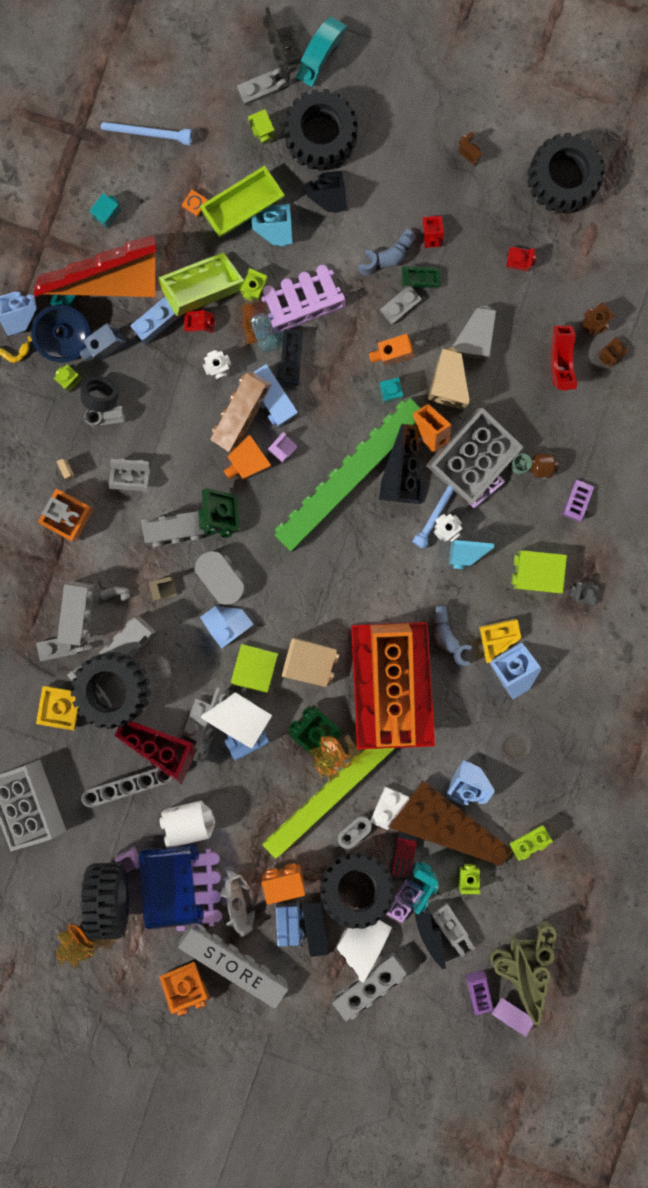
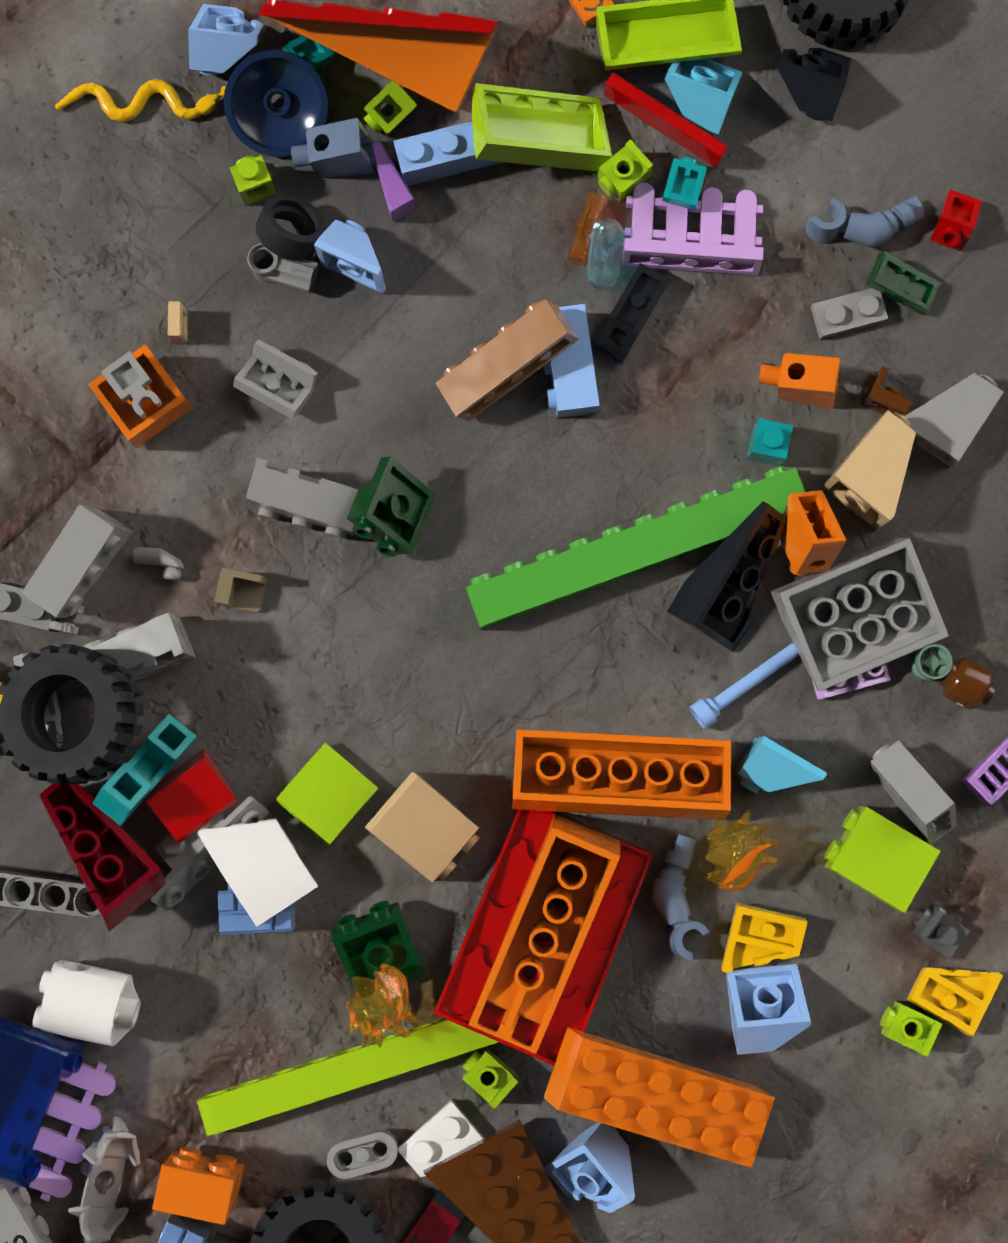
camera: 25 degrees right, 5 degrees down
(125, 305) = (398, 99): none -> lime brick
(135, 393) = (349, 252): none -> light blue slope
(145, 352) = (396, 193): none -> medium lavender slope
(160, 699) = (145, 770): none -> teal arch
(188, 701) = (191, 796): none -> red slope
(199, 321) = (508, 188): red bracket -> none
(217, 372) = (502, 281): white brick -> none
(219, 577) = (343, 616): light grey brick -> none
(226, 623) = (316, 698): light blue slope -> none
(246, 460) = (479, 445): orange torso -> none
(262, 248) = (665, 120): none -> red tile
(282, 448) = (547, 452): lavender panel -> none
(287, 277) = (684, 183): none -> teal bracket
(394, 591) = (622, 775): none -> orange brick
(406, 766) = (504, 1079): none -> lime brick
(440, 530) = (747, 715): white brick -> none
(441, 341) = (883, 399): none -> reddish brown bracket
(468, 602) = (737, 852): none -> clear yellow hair
(484, 738) = (658, 1098): none -> orange brick
(541, 532) = (914, 792): none -> light grey slope
(598, 647) = (923, 1035): none -> lime brick
(605, 621) = (955, 995): none -> yellow wing

